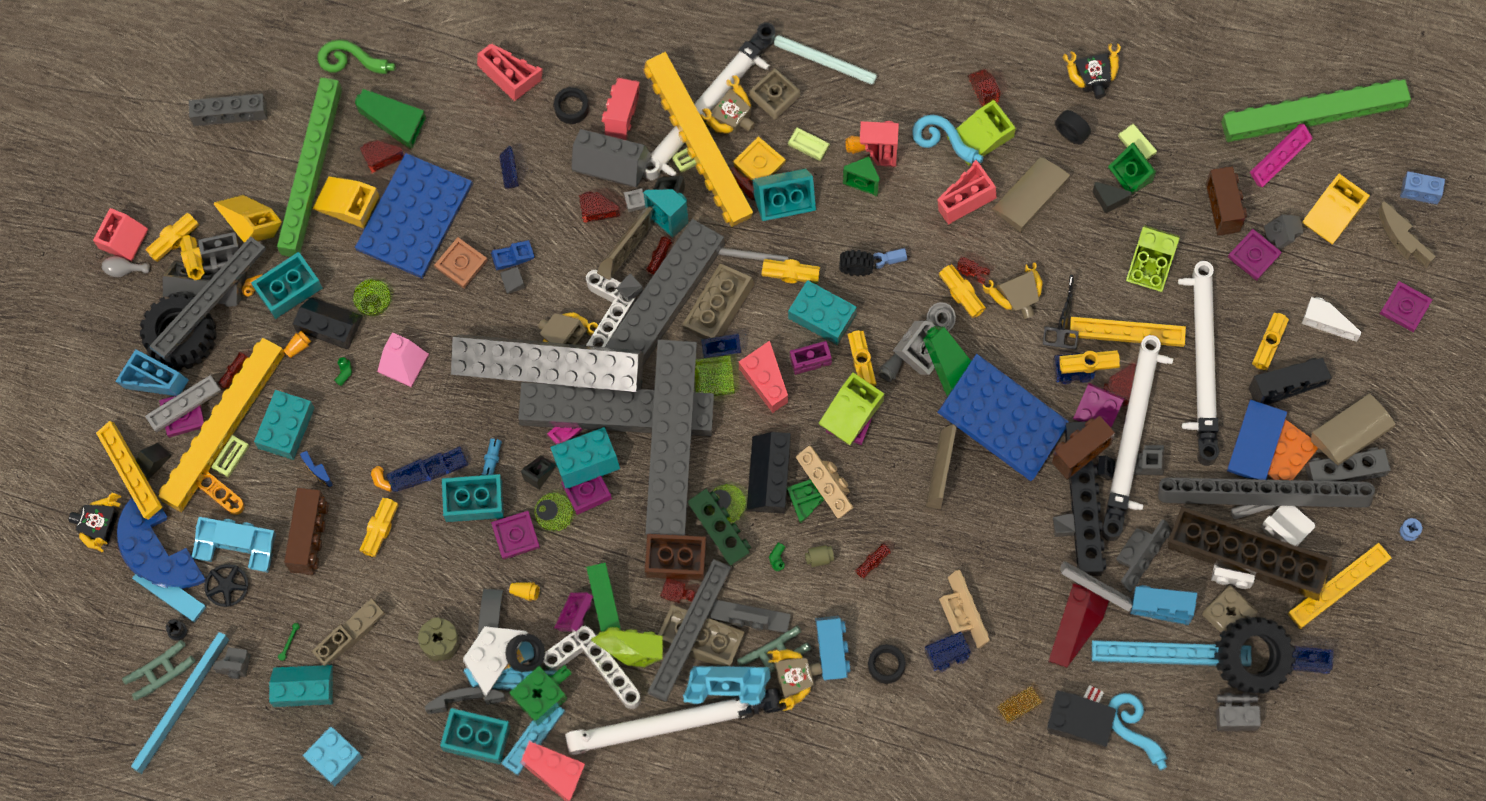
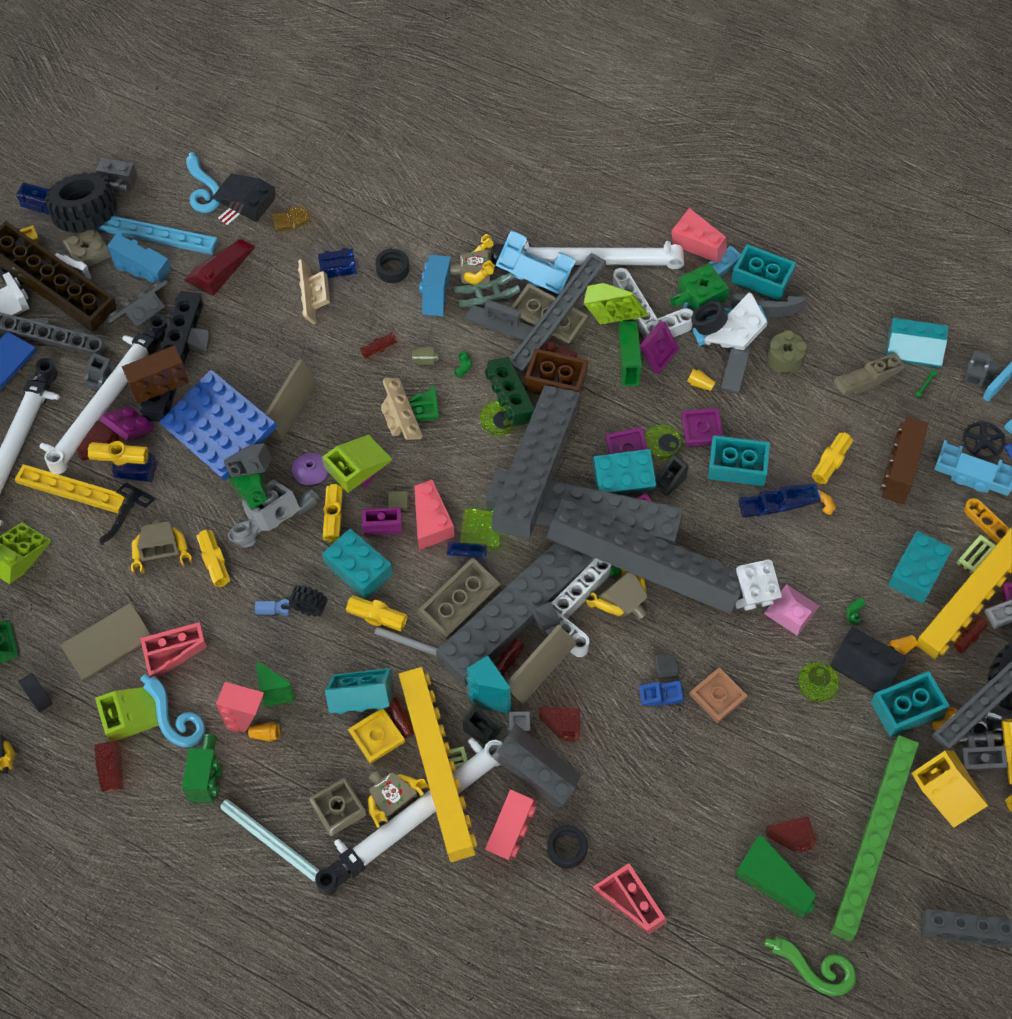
camera: 170 degrees left, 10 degrees down
(318, 471) = (887, 516): blue slope -> none
(332, 756) = (892, 283): medium azure brick -> none
(347, 200) = (837, 787): yellow slope -> none
(413, 215) = (762, 761): blue plate -> none
(436, 361) = (757, 584): none -> white bracket
(491, 457) = (714, 499): dark azure pin -> none
(509, 168) = (650, 789): clear blue slope -> none
(769, 472) = (451, 432): black slope -> none
(803, 390) = (398, 499): none -> olive tile
(808, 144) = (318, 747): yellowish green tile -> none
(898, 91) = (202, 772): none -> green brick
(900, 417) = (309, 475): none -> medium lavender dish
(952, 371) = (248, 460): none -> dark grey slope
(971, 268) = (197, 578): clear red plate -> none
(1096, 586) = (191, 279): light grey tile -> none
(1110, 197) = (30, 617): pearl dark grey slope -> none

